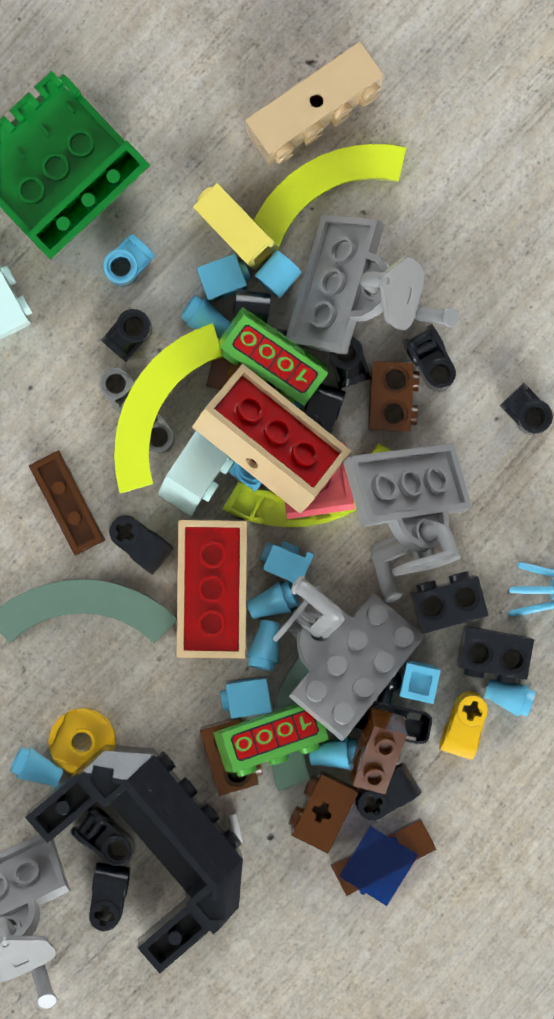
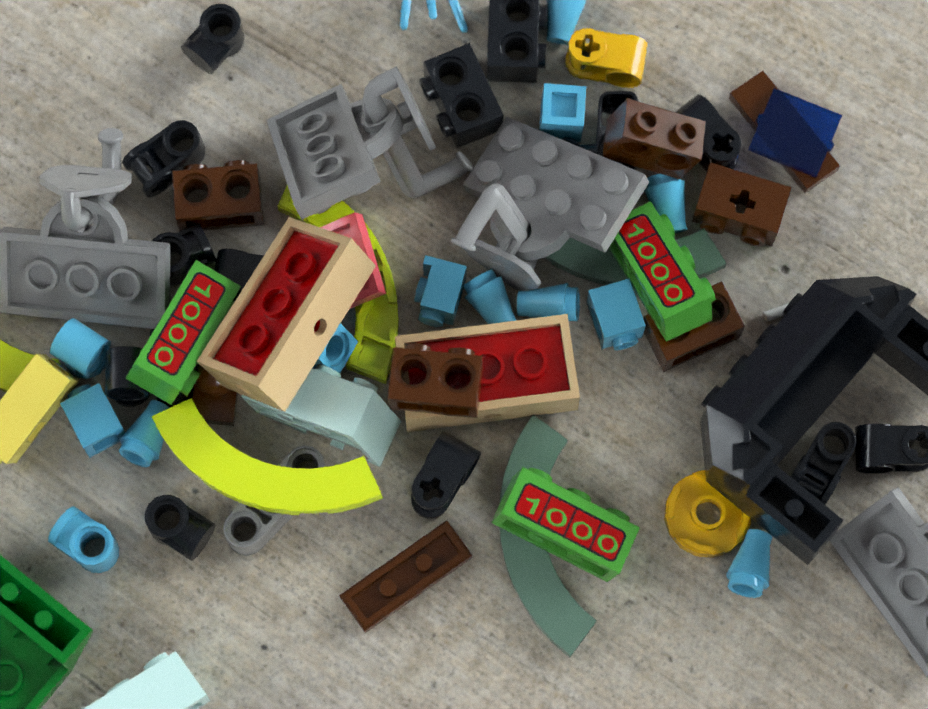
camera: 100 degrees left, 15 degrees down
(84, 631) = (566, 523): none -> bright green brick
(192, 545) = (433, 393): none -> reddish brown brick

